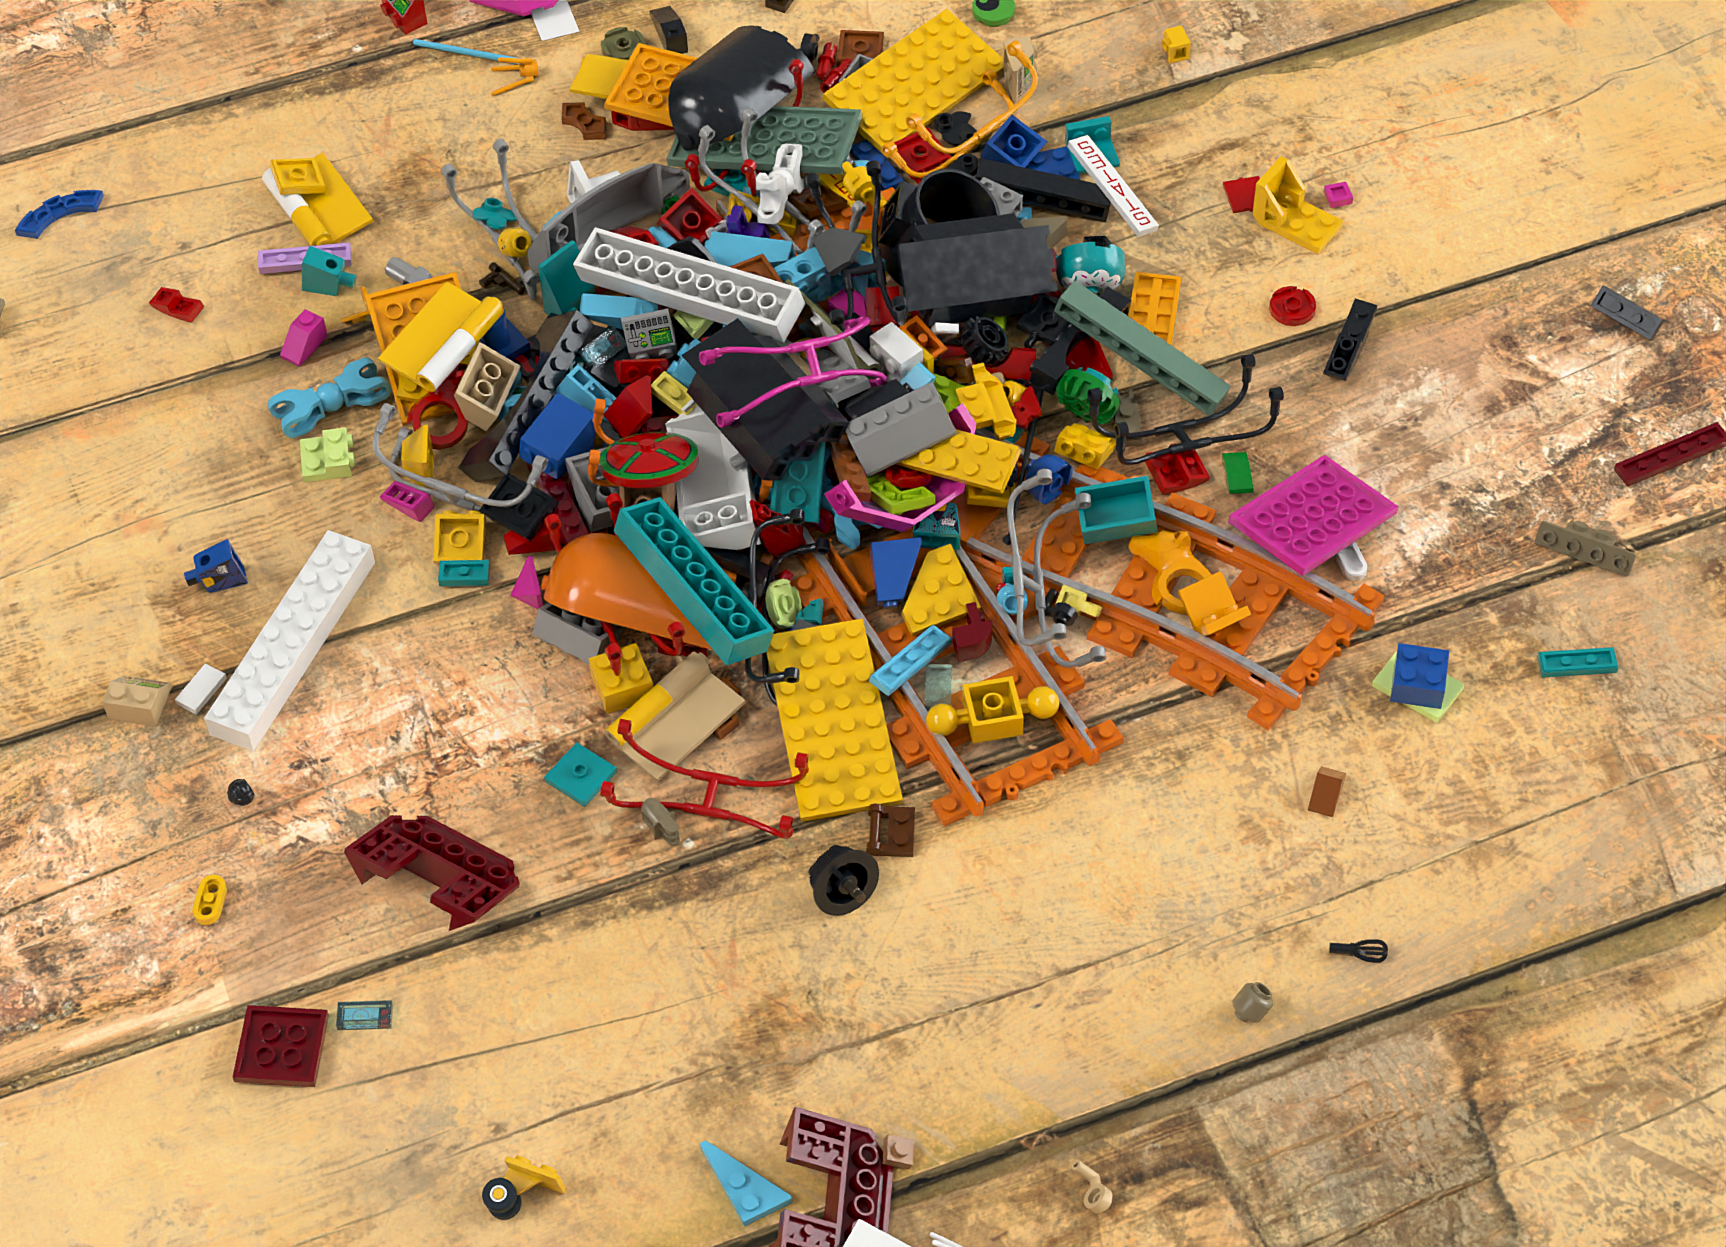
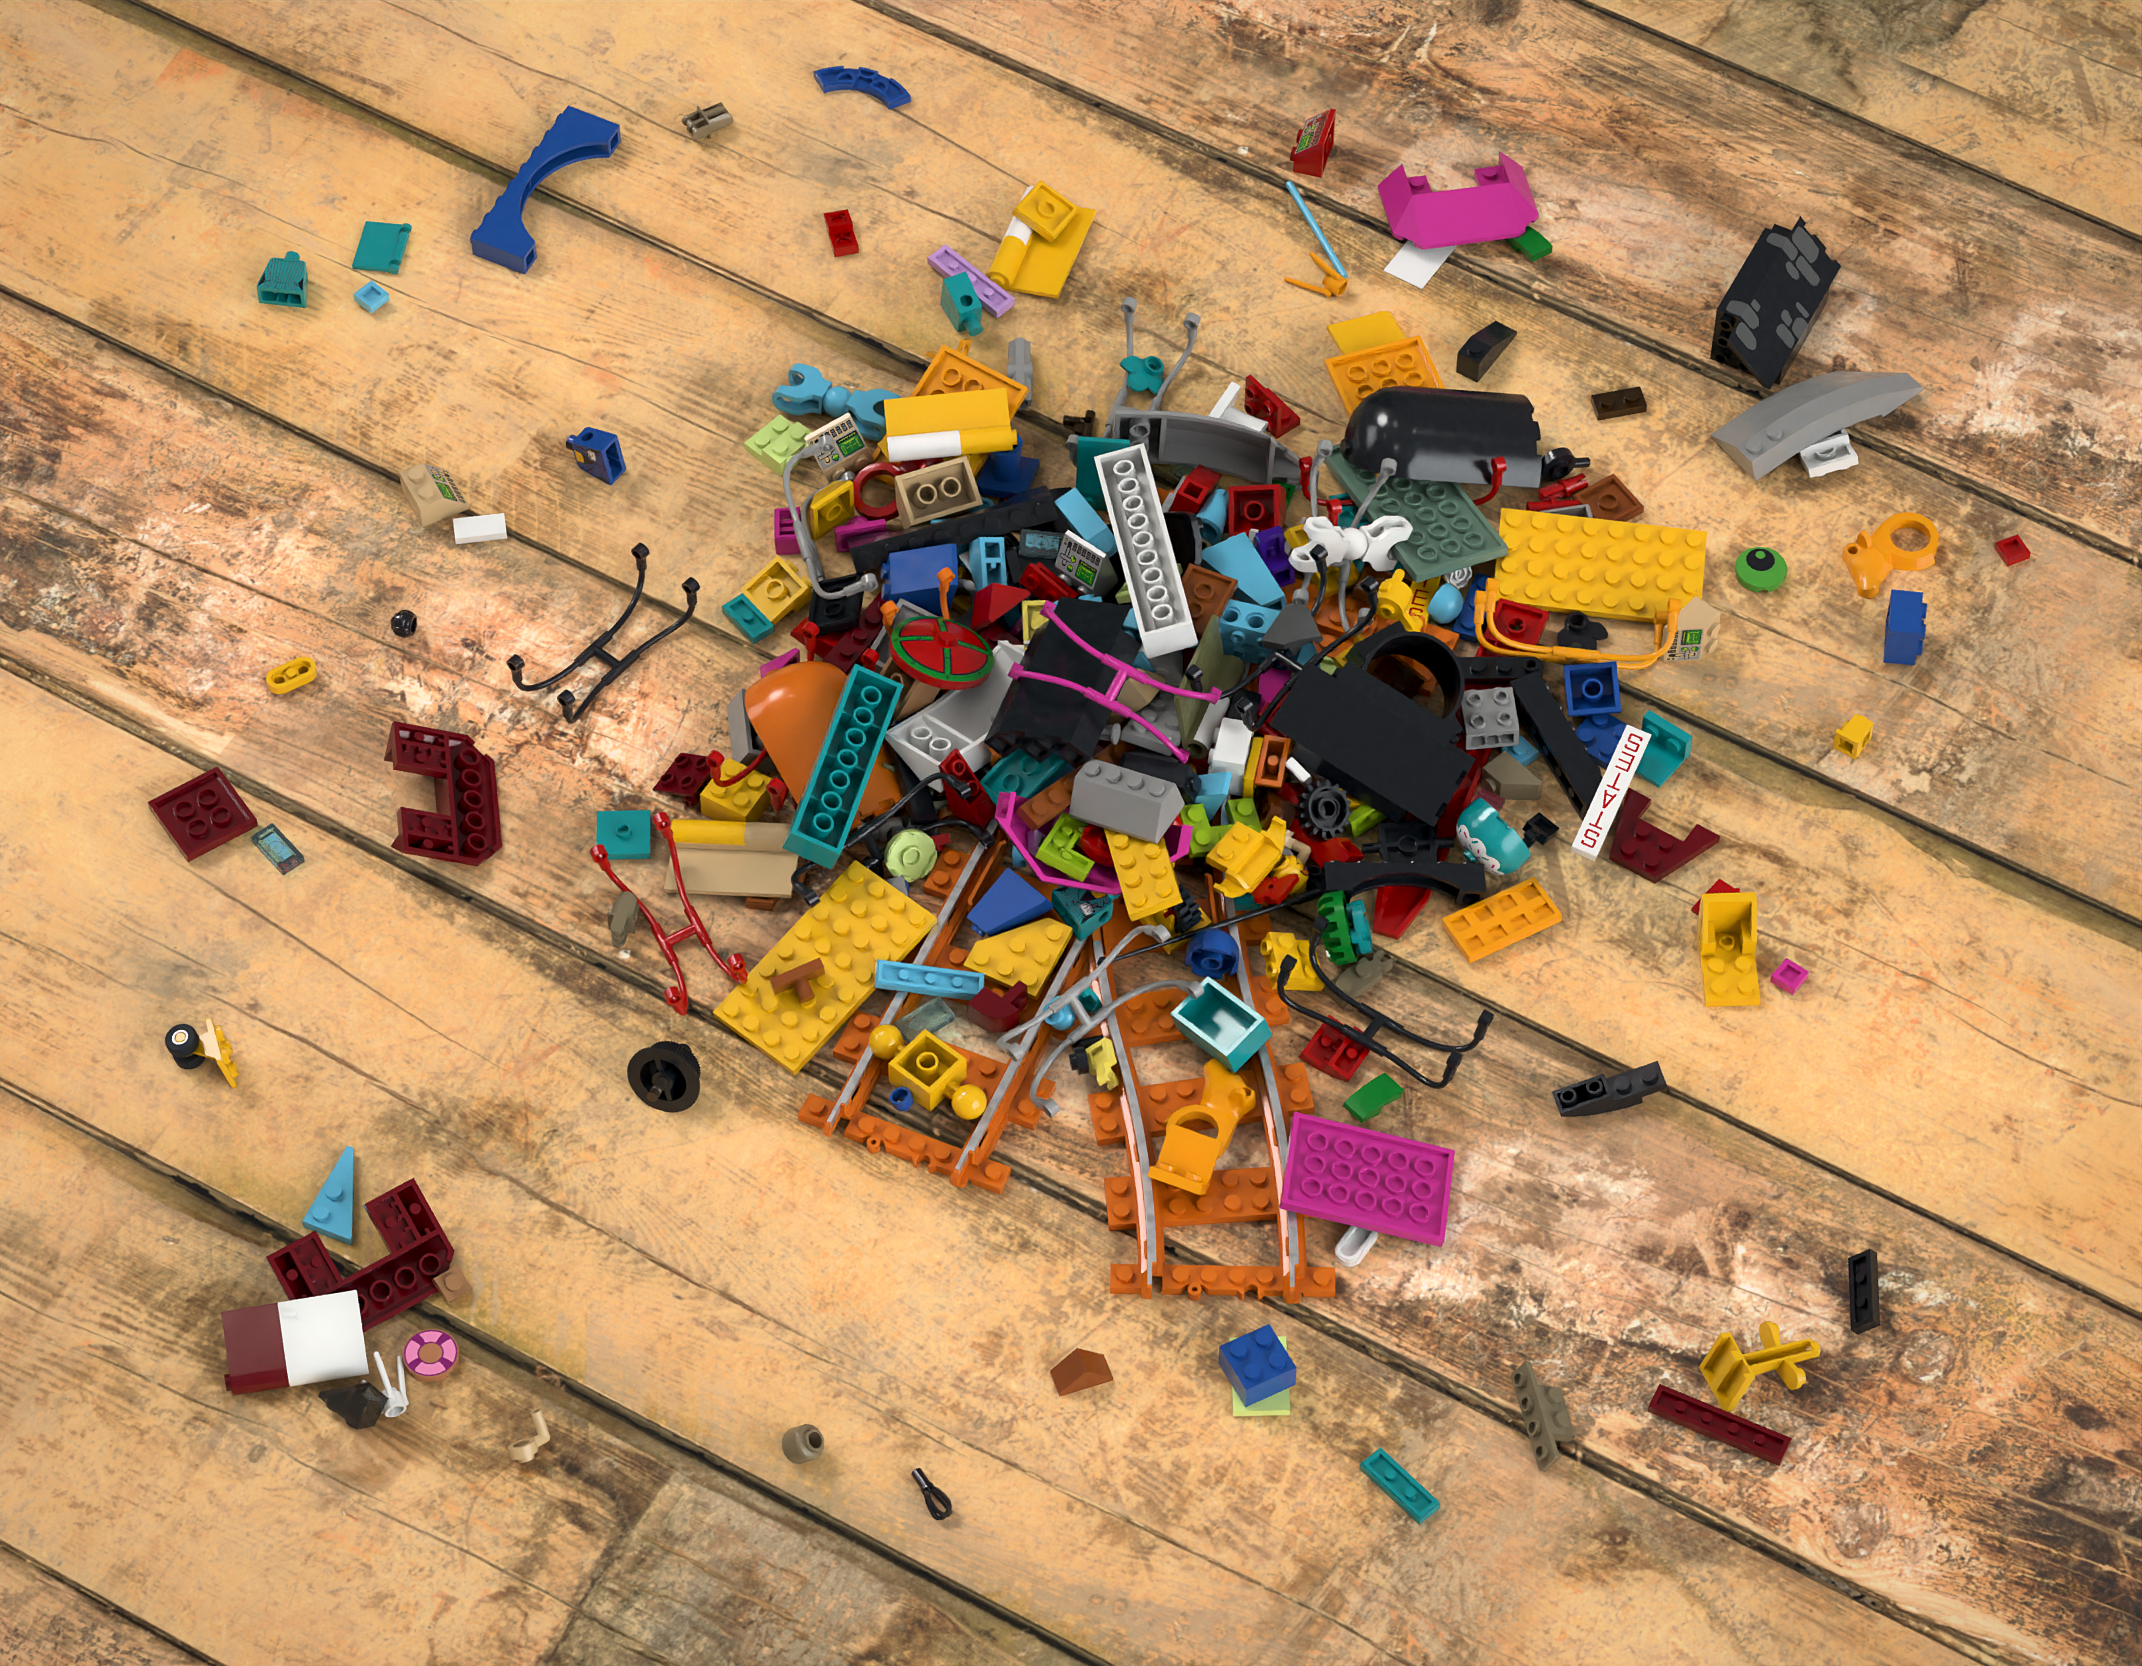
camera: 50 degrees right, 0 degrees up
(289, 641) = (574, 550): white brick -> none
(303, 337) = (884, 341): dark pink slope -> none
(369, 416) = (849, 452): none -> slope
(443, 720) = (595, 649): none -> black bar
(453, 456) = (856, 526): none -> dark pink tile
(514, 242) = (1119, 398): yellow head -> none
(569, 699) = (685, 777): none -> dark red hinge
(590, 125) = (1314, 373): dark orange tile -> none
(599, 160) = (1267, 406): none -> red bracket
(614, 38) = (1434, 318): olive plate -> none
(812, 613) = (922, 882): teal tile -> none
(838, 738) = (799, 980): none -> dark orange tile
(900, 831) = (761, 1091): reddish brown plate -> none
(950, 1209) = (430, 1355): none -> tile
(999, 741) = (904, 1096): none -> blue hinge
(1142, 348) = (1432, 933): sand green brick -> none
(1170, 200) = (1649, 849): none -> dark red wing
(1292, 306) = (1617, 1023): red tile -> none
(1642, 413) = (1731, 1372): none -> yellow piece

